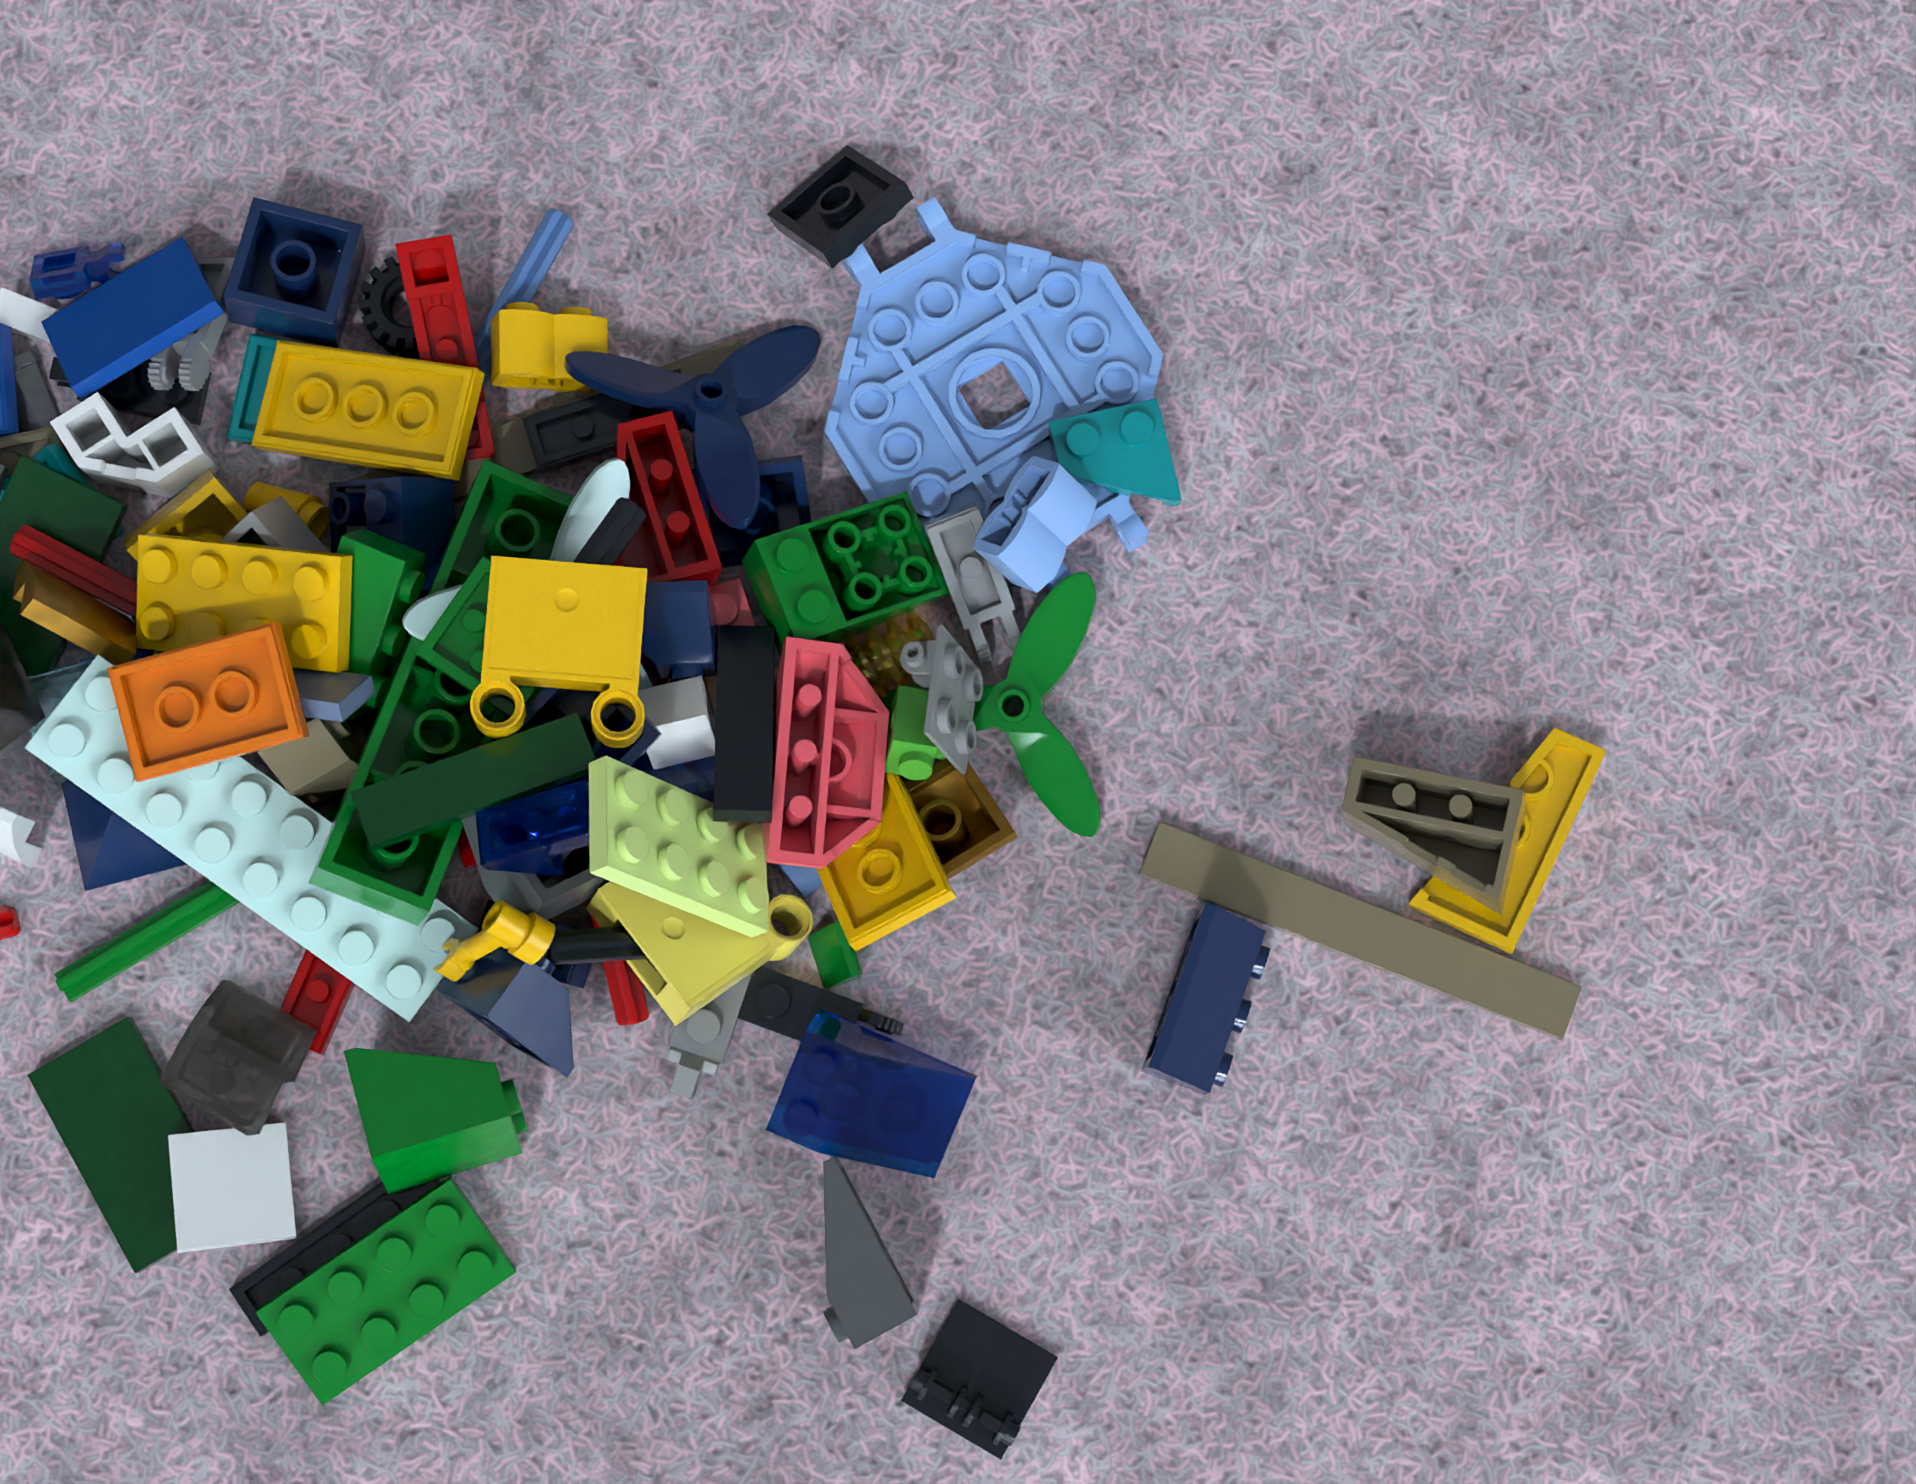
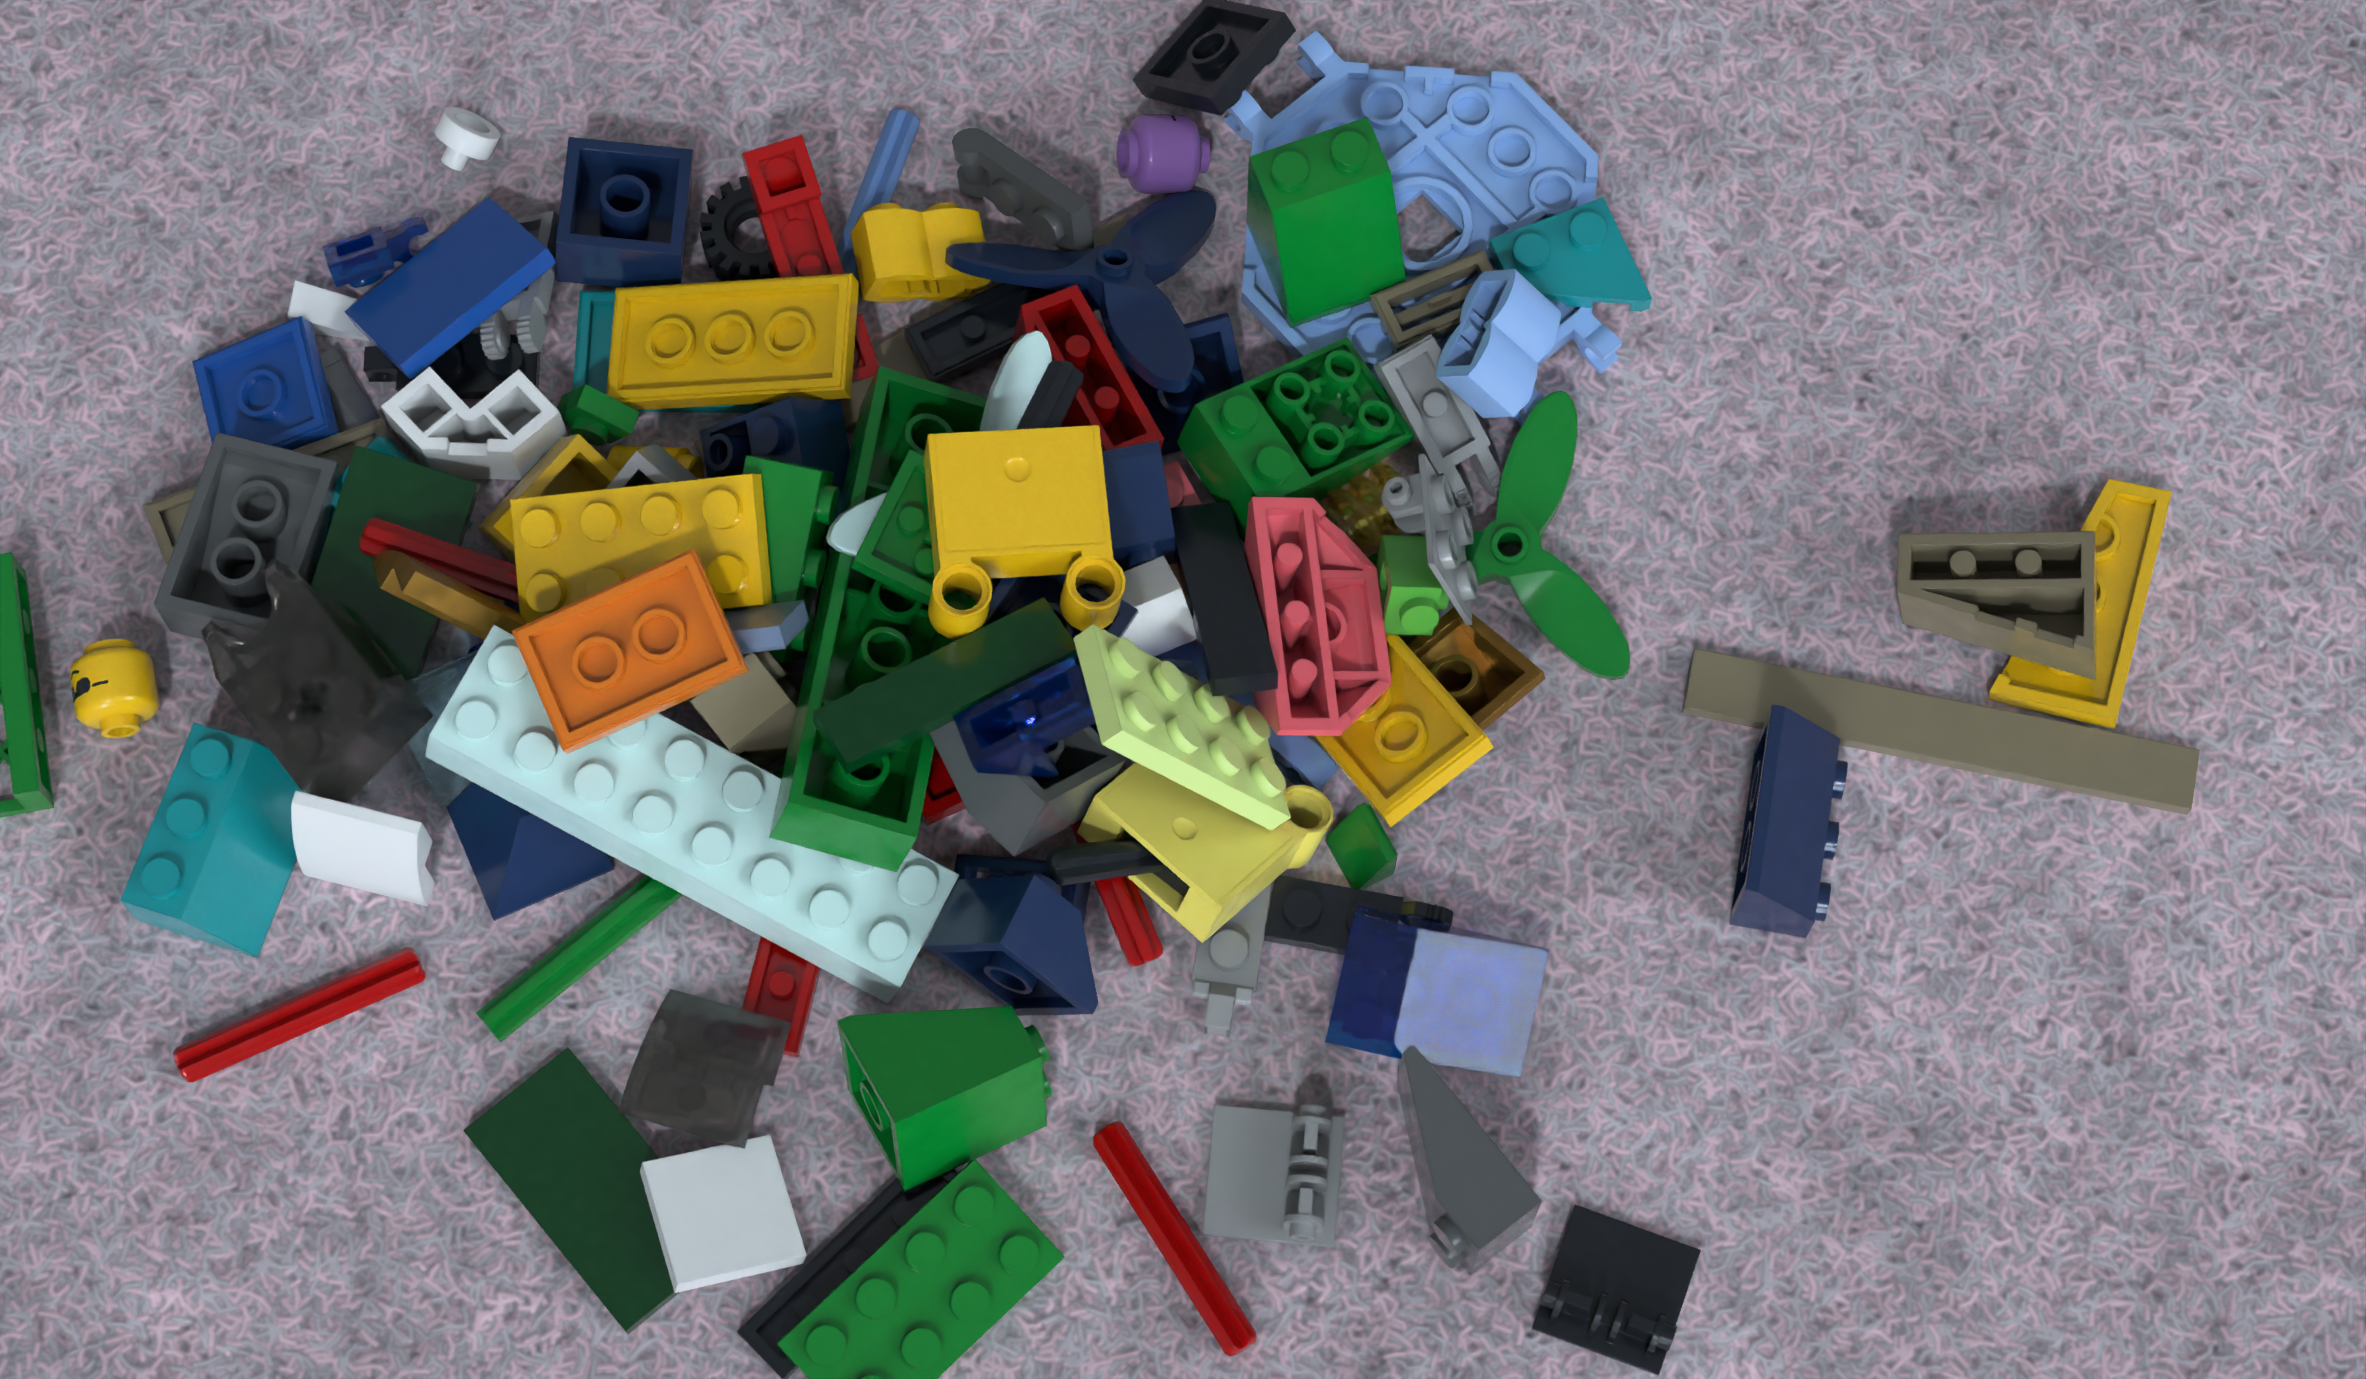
camera: 10 degrees left, 10 degrees down
(173, 174) = (465, 137): none -> white tile
(241, 456) = (596, 415): none -> green plate
(504, 927) = (1008, 841): yellow brick -> none
(612, 1270) = (1174, 1239): none -> red axle
(646, 307) = (1022, 190): none -> dark grey plate
(707, 1230) = (1274, 1175): none -> light grey hinge
(779, 289) = (1162, 153): none -> medium lavender head
(903, 389) = (1325, 221): none -> green slope
(982, 452) = (1439, 327): none -> dark tan tile

